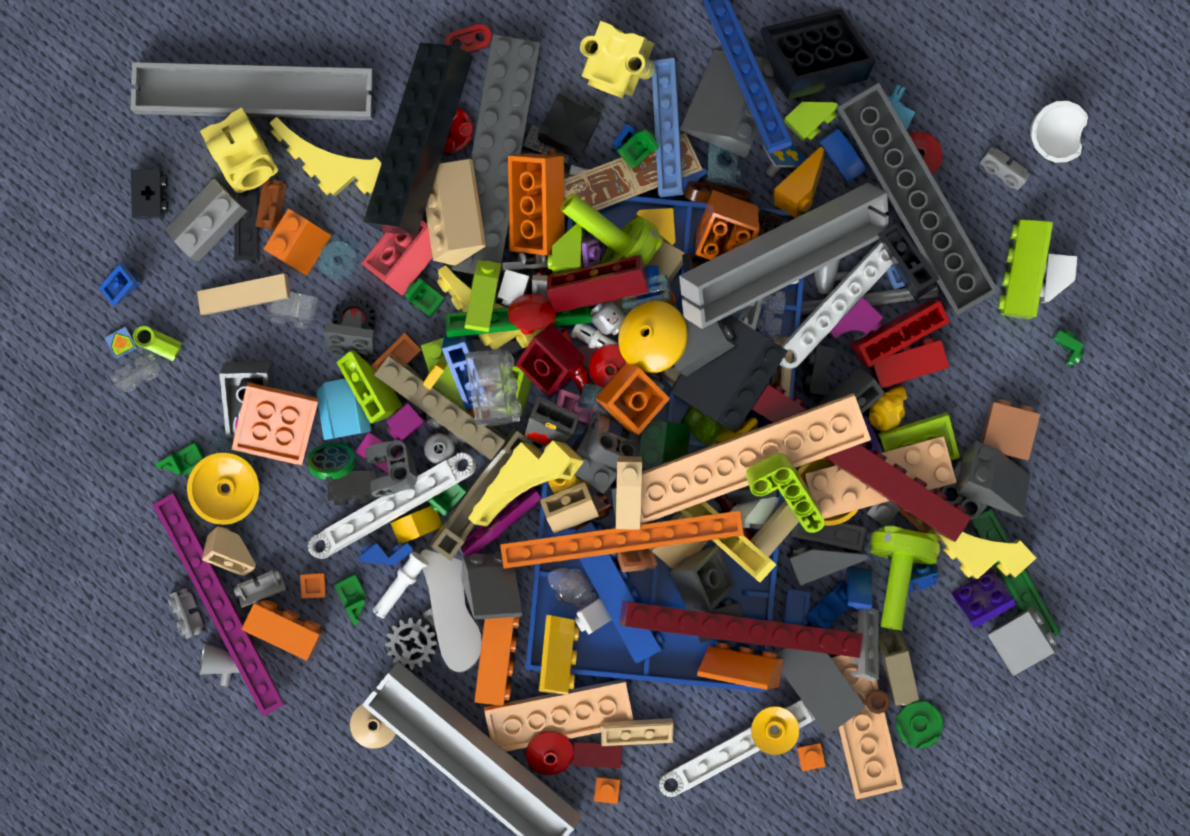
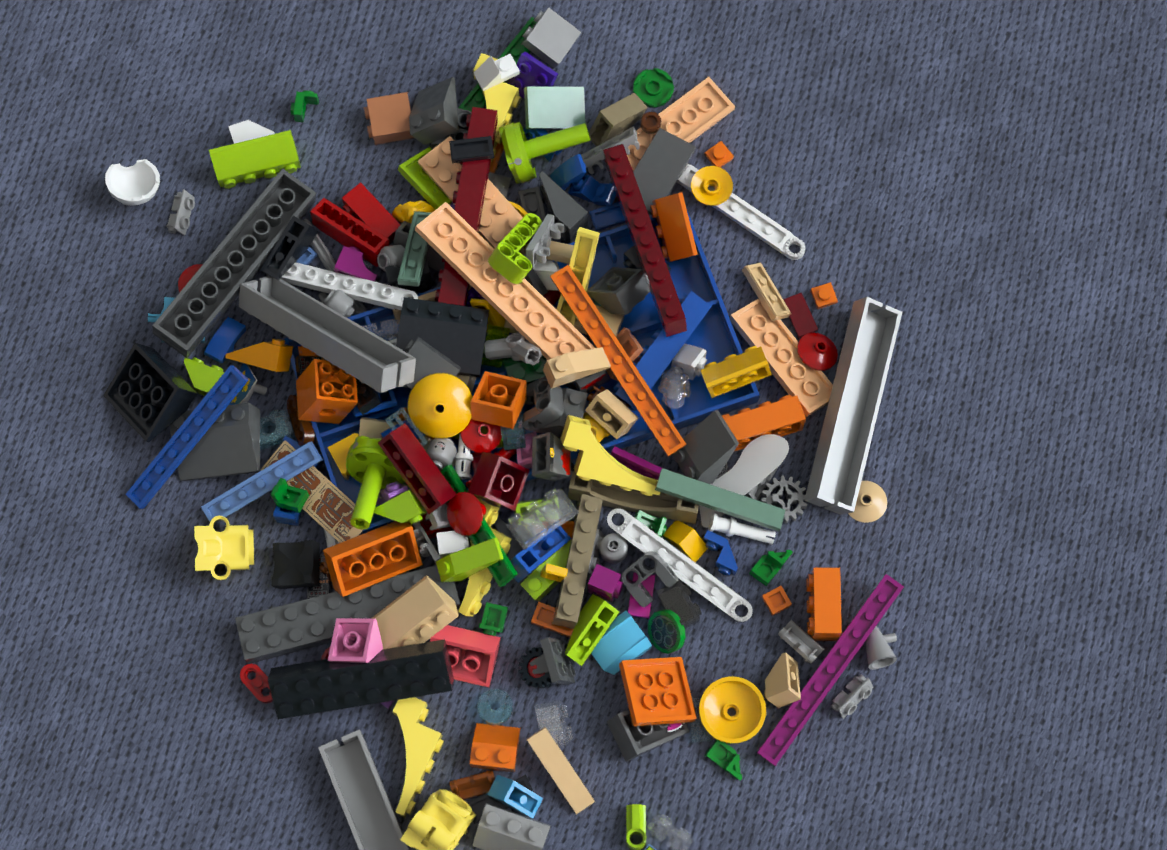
camera: 110 degrees left, 15 degrees down
(238, 238) = (515, 796): none -> dark azure slope
(434, 576) = (720, 499): none -> sand green tile
(455, 147) = (355, 640): none -> bright pink slope
(683, 442) = (514, 347): none -> light grey piece
(786, 522) = (540, 243): none -> light grey plate
(821, 285) = (340, 302): none -> light grey head
(838, 386) = (414, 254): none -> sand green tile
(846, 364) = (390, 256): none -> light grey head
(921, 494) = (471, 149): none -> black tile
(939, 607) = (554, 107): none -> tile
(1005, 563) = (495, 72): none -> white slope

